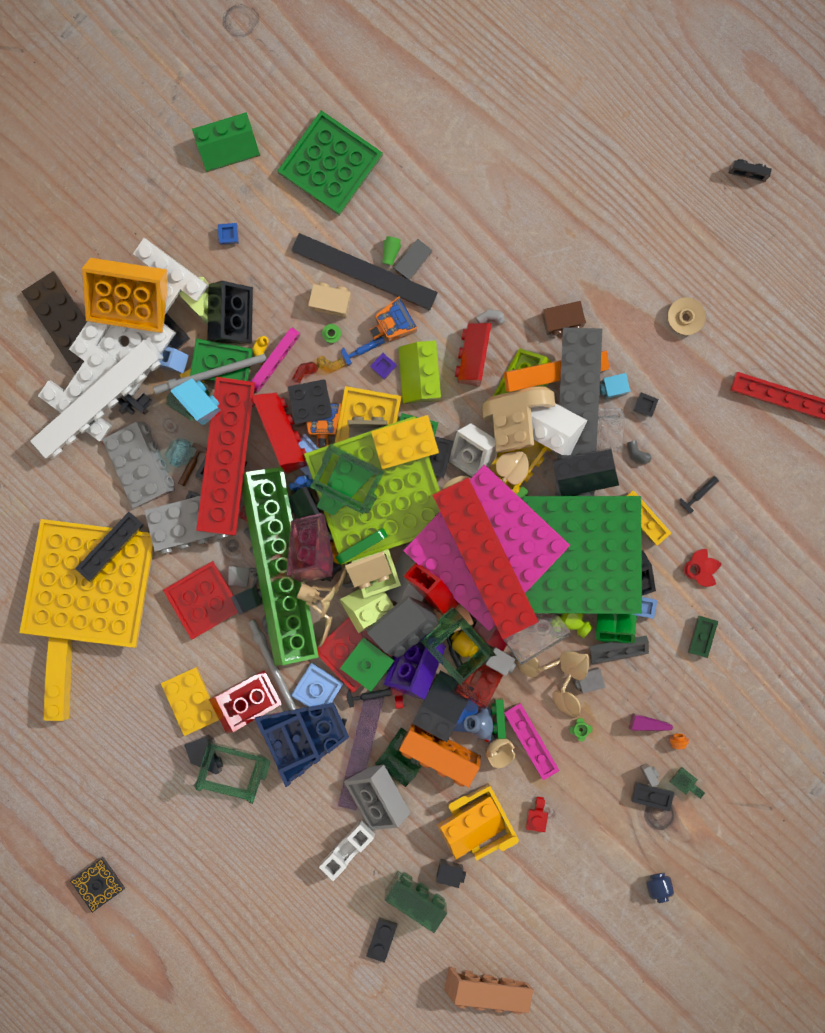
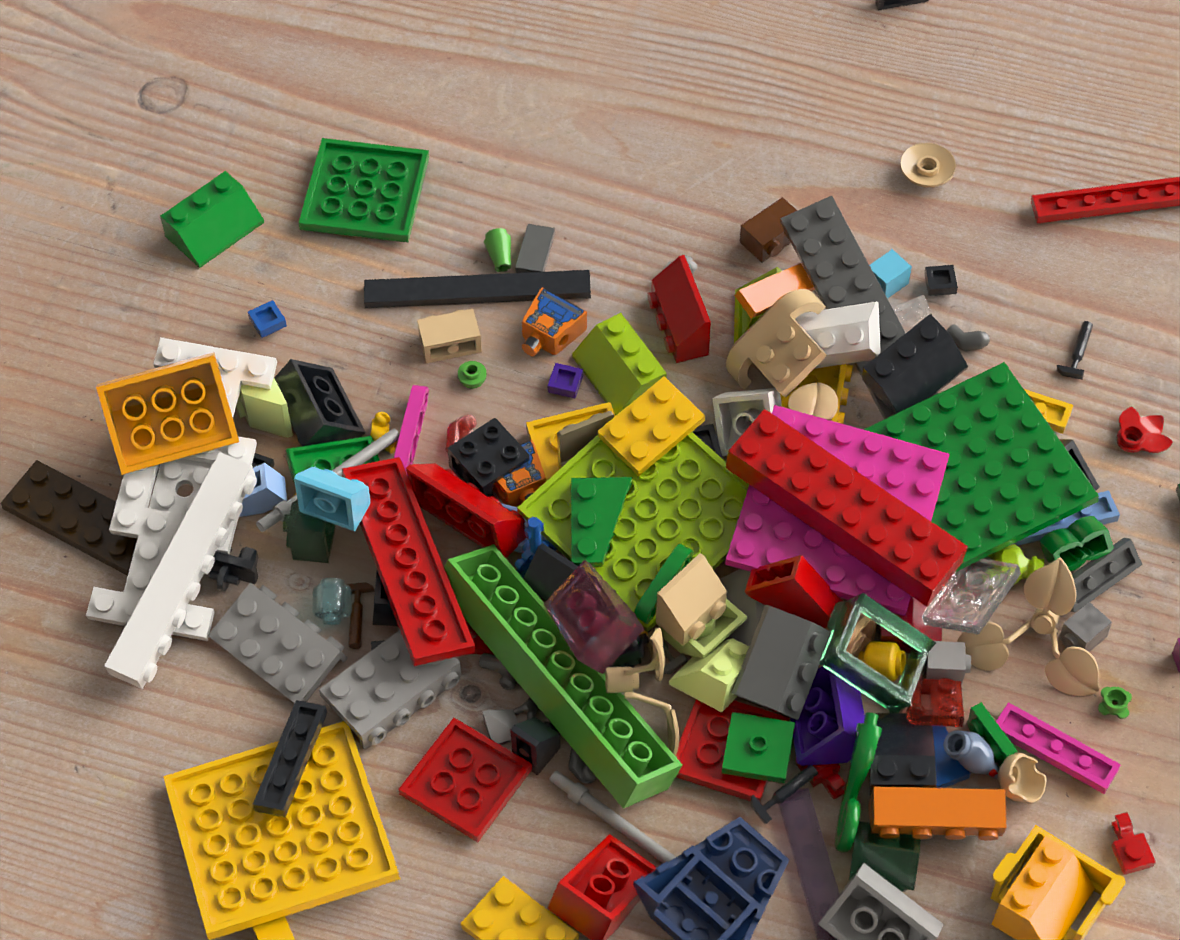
camera: 30 degrees left, 30 degrees down
(316, 687) = (697, 817): light blue tile -> none
(329, 366) = (485, 412): clear yellow arm -> none
(363, 349) = (524, 376): blue piece -> none
(371, 497) = (566, 470): clear green piece -> none
(413, 708) = (861, 761): none -> green plant

